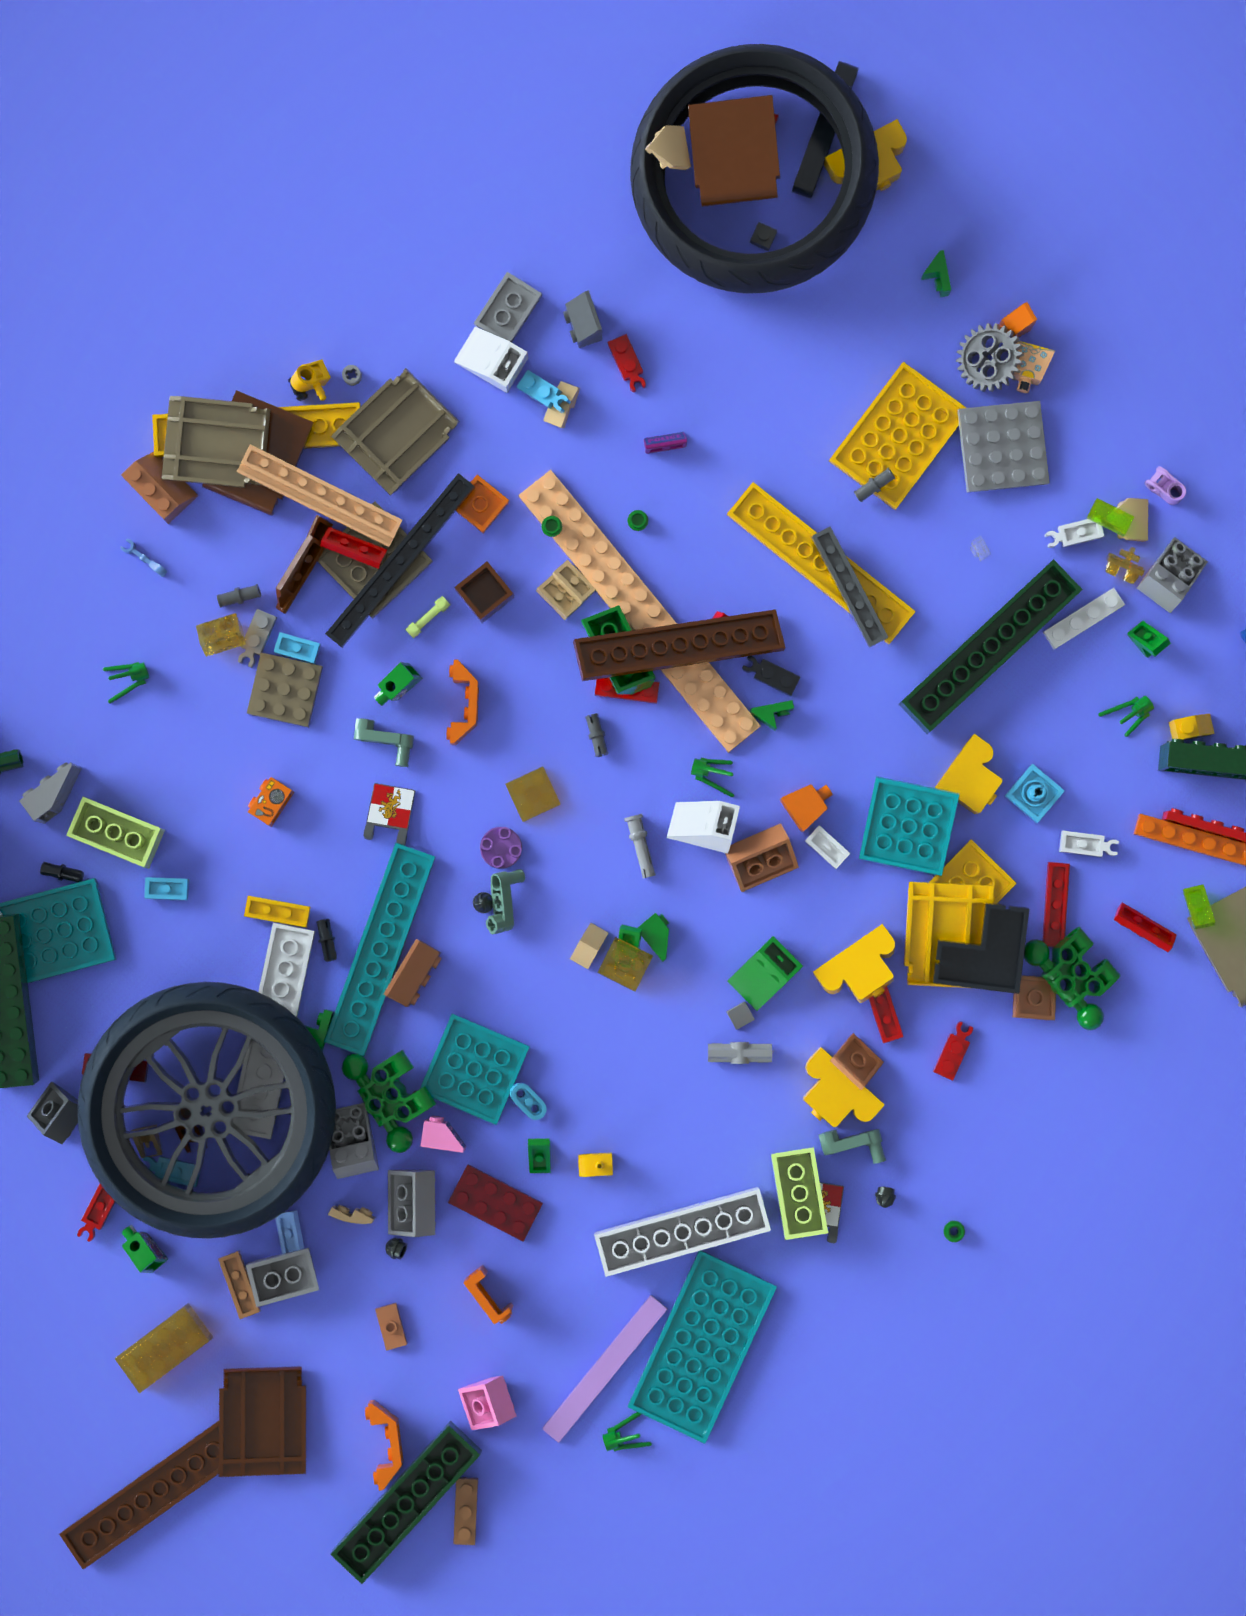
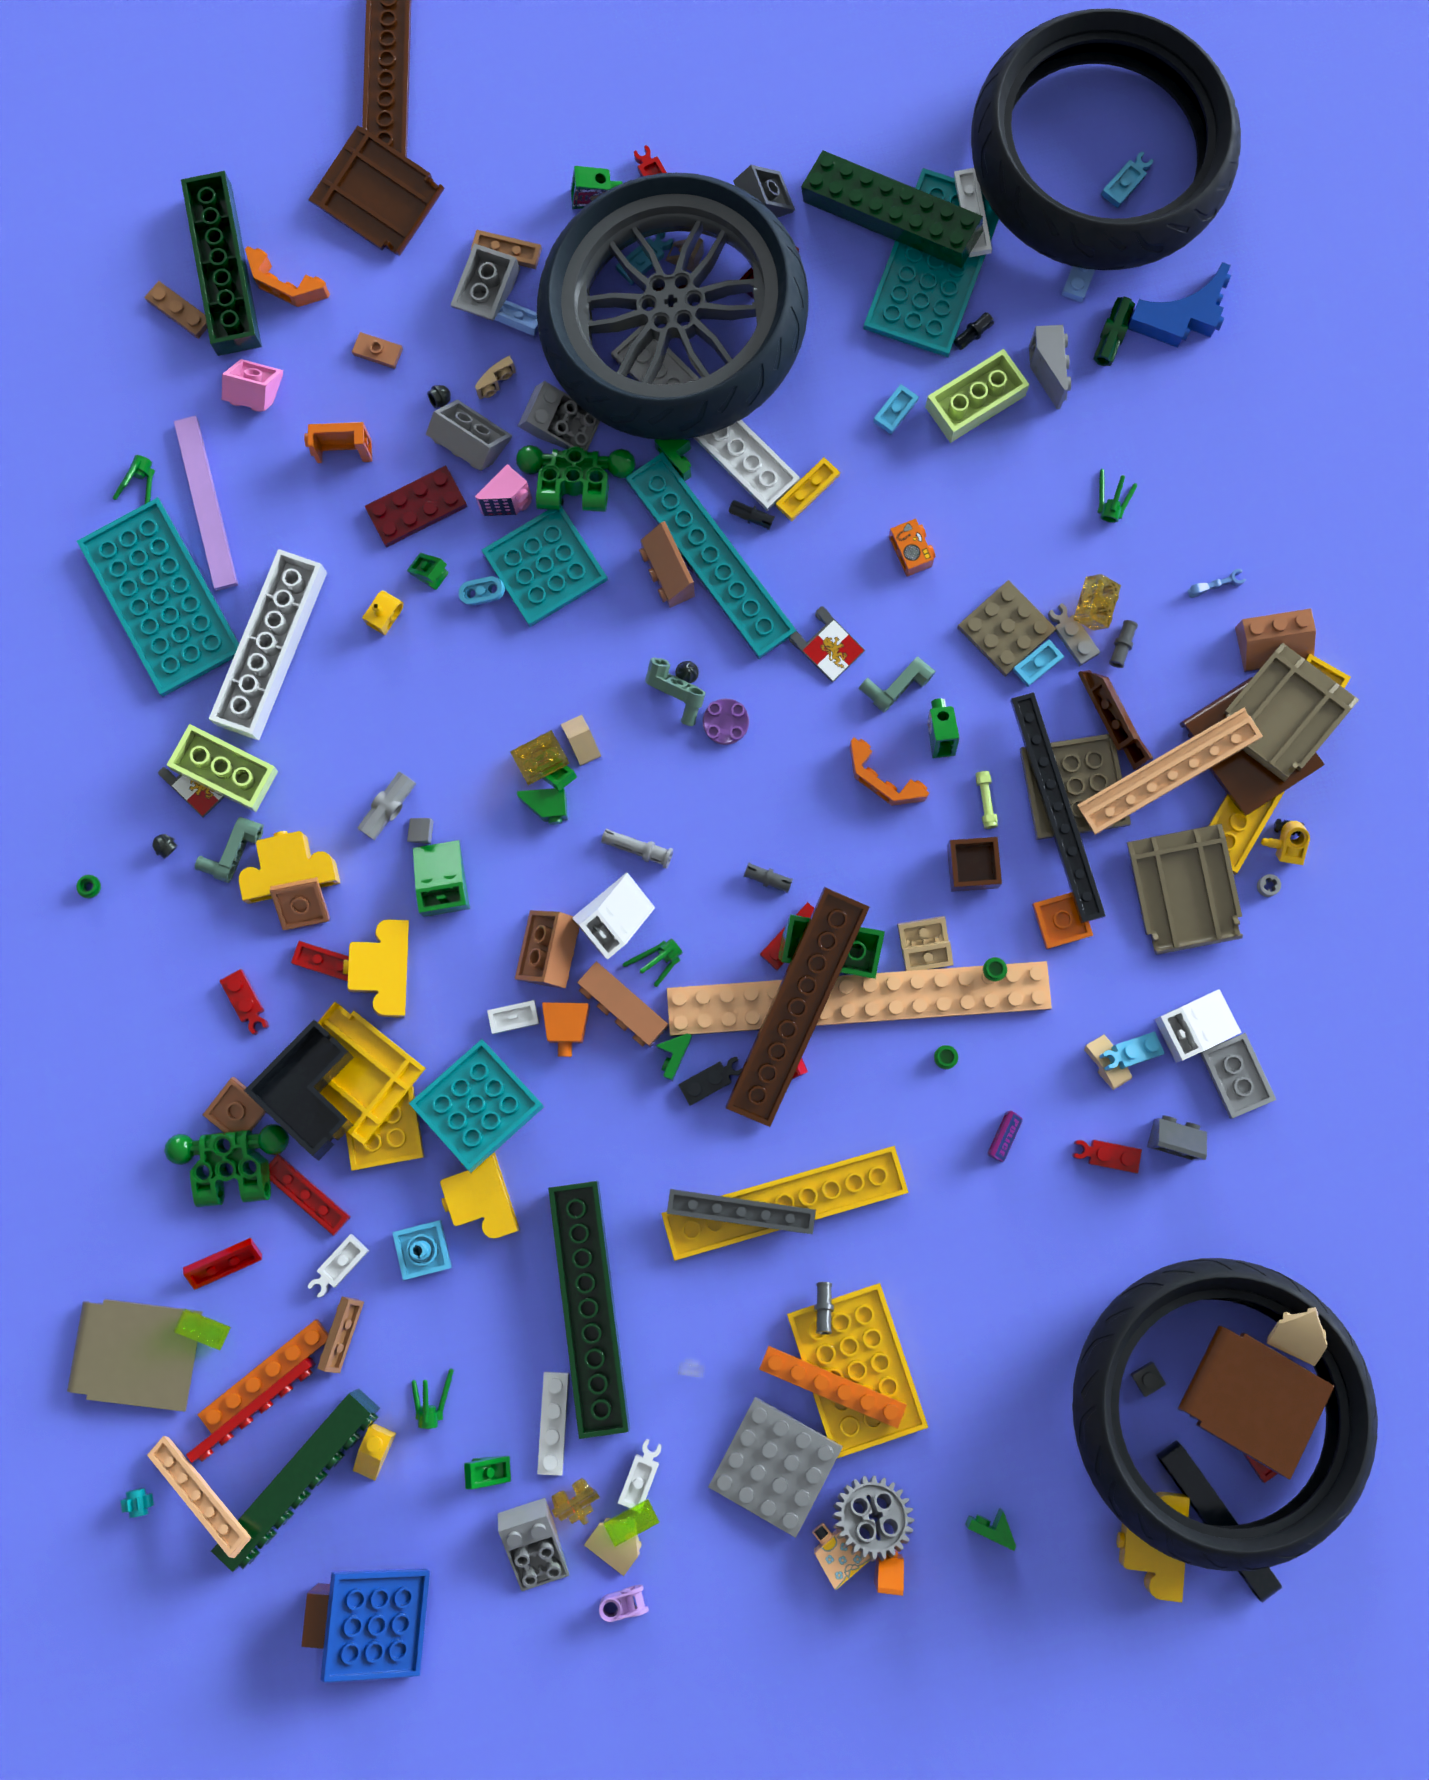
camera: 130 degrees right, 5 degrees down
(164, 1348) = (498, 154): clear yellow brick -> none
(353, 547) = (1098, 772): red plate -> none
(532, 794) = (754, 783): clear yellow plate -> none
(763, 774) = (623, 1004): none -> nougat brick
(922, 443) = (833, 1386): none -> orange plate
(1132, 807) = (340, 1335): none -> medium nougat plate

